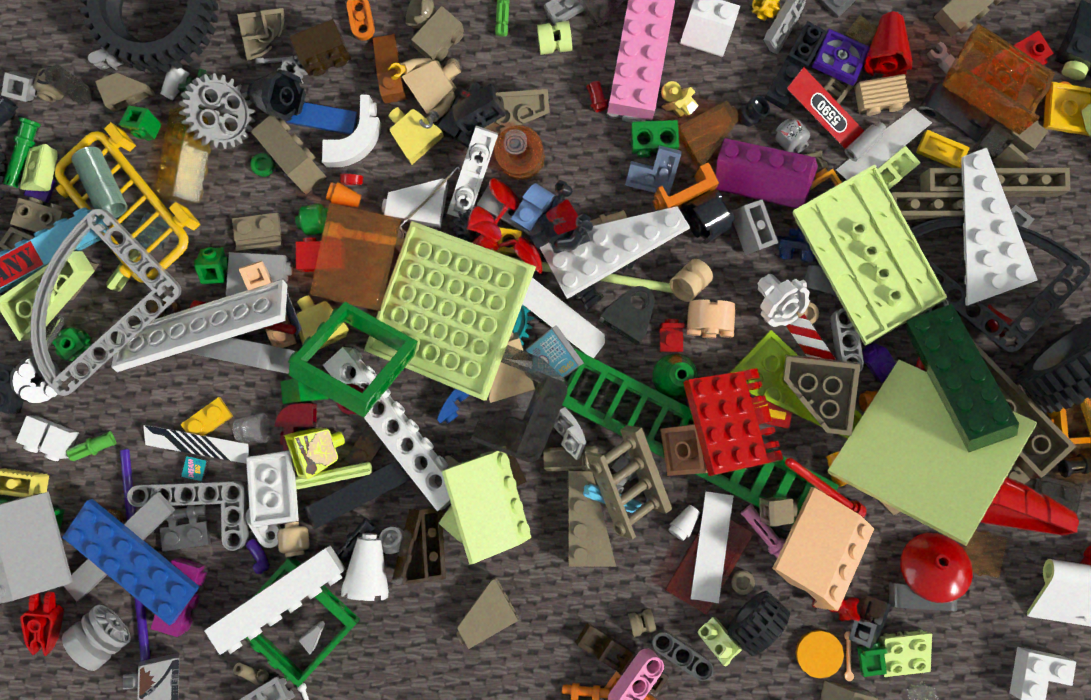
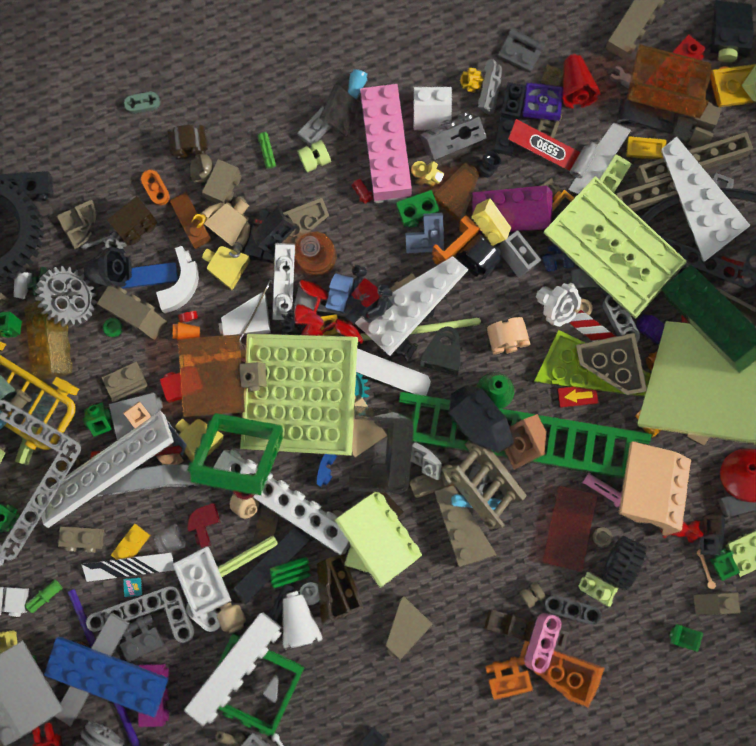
camera: 15 degrees left, 5 degrees down
(127, 215) = (20, 399): none -> dark tan bush
(151, 394) = (85, 538): none -> dark tan brick
(259, 555) = (212, 647): dark purple arm -> none
(295, 392) = (201, 496): green slope -> none
(311, 218) = (167, 357): green head -> none
(313, 450) = (225, 540): torso -> none
(345, 422) = (244, 508): none -> tan head
(371, 512) = (289, 575): none -> green tile
(402, 272) = (253, 376): none -> dark tan brick
(556, 351) = (394, 399): tile -> none
(647, 406) = (480, 419): none -> black wedge
(671, 336) = (481, 360): red bracket -> none
(683, 524) = (540, 504): white cone -> none
(691, 280) = (482, 310): tan wheel -> none
(712, 547) = (568, 516): white sticker -> none
(723, 64) = (453, 135): none -> flat silver piece
(729, 422) = (548, 411): red hinge -> none
(735, 180) = (491, 222): none -> light yellow brick
(777, 511) = (609, 468): dark tan slope -> none
(792, 135) = (525, 173): light grey head -> none
(819, 653) = (682, 574): light orange tile -> none
(855, 505) = (638, 438): red piece -> none
(882, 94) = (584, 120): tan brick -> none

